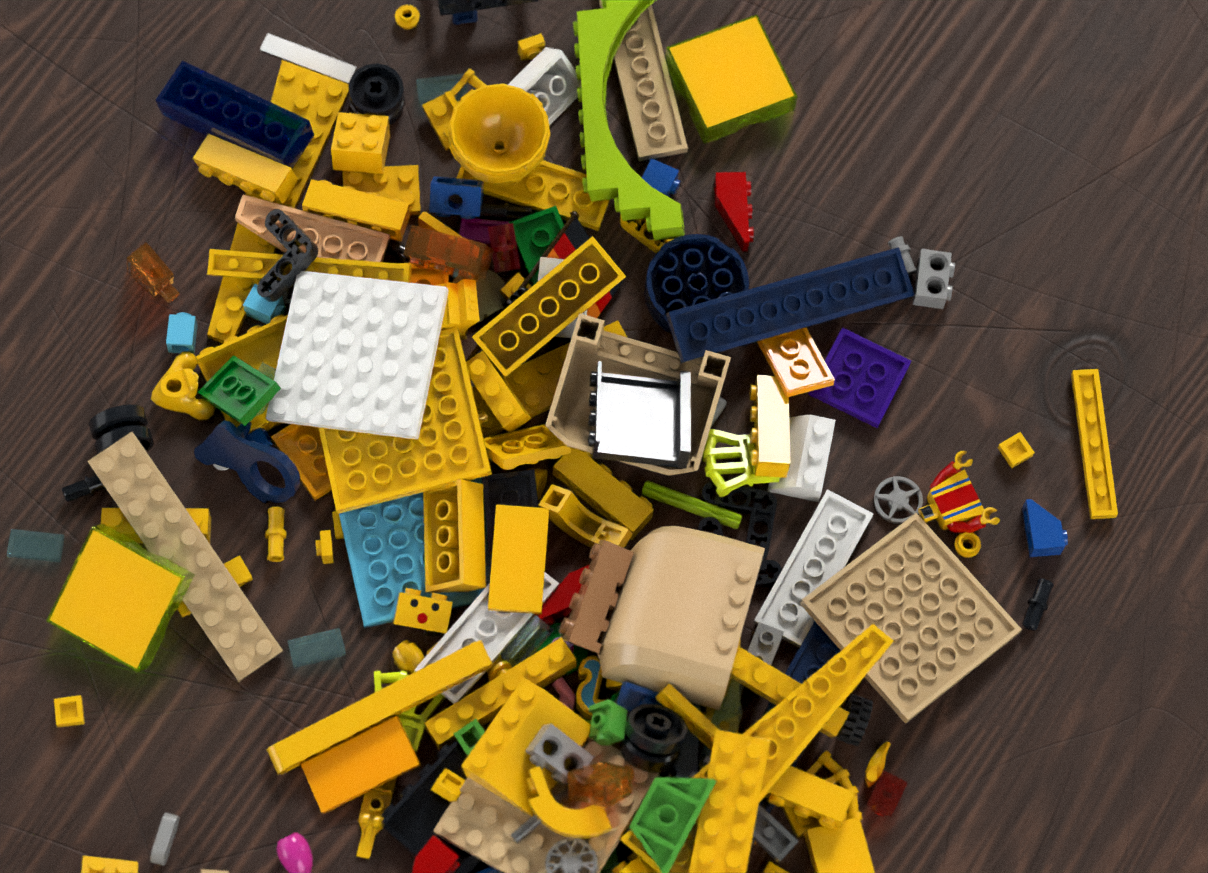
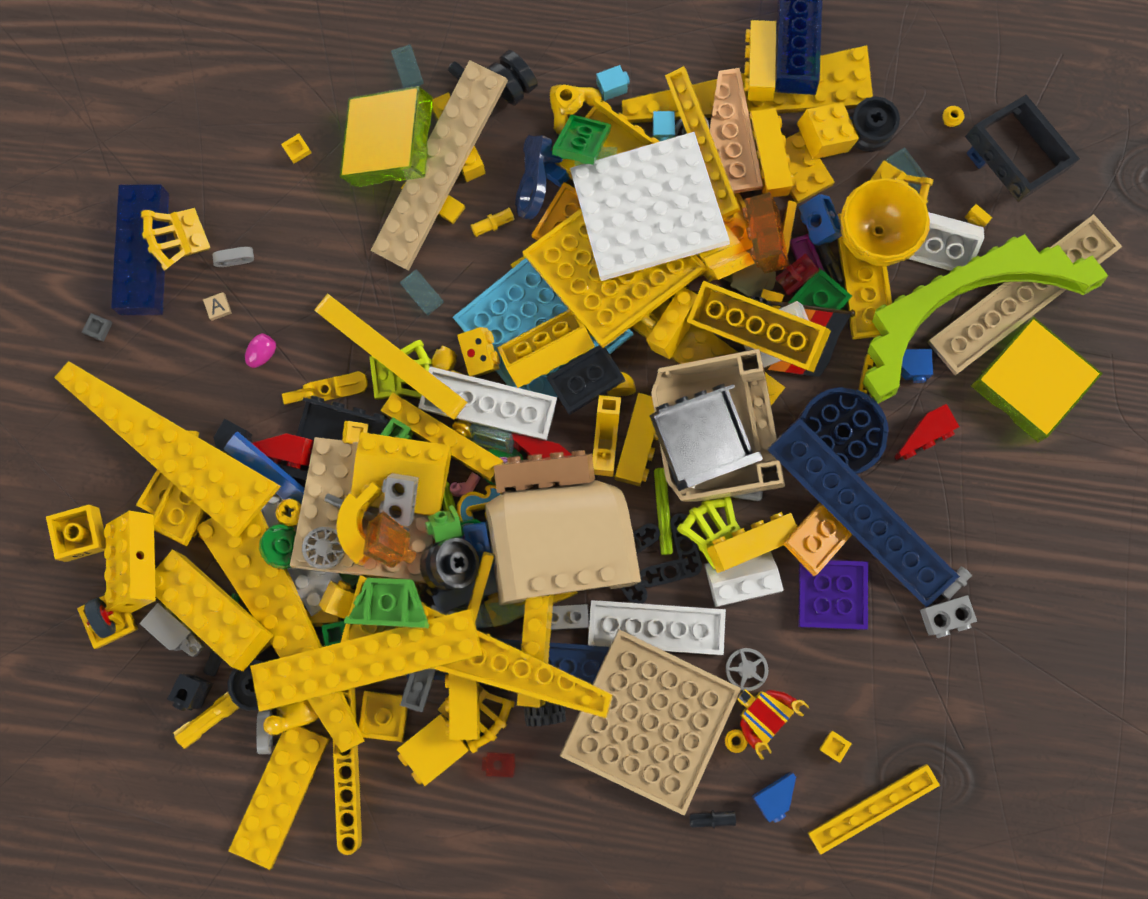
camera: 75 degrees right, 10 degrees up
(146, 265) = (646, 37): clear orange torso -> none
(293, 255) = (677, 121): black beam -> none
(308, 58) = (880, 62): white sticker -> none
(324, 547) = (498, 261): yellow plate -> none
(360, 764) = (345, 363): light orange tile -> none
(518, 559) = (547, 400): yellow tile -> none
(524, 447) = (637, 360): yellow plate -> none
(876, 765) = (522, 746): yellow bar -> none

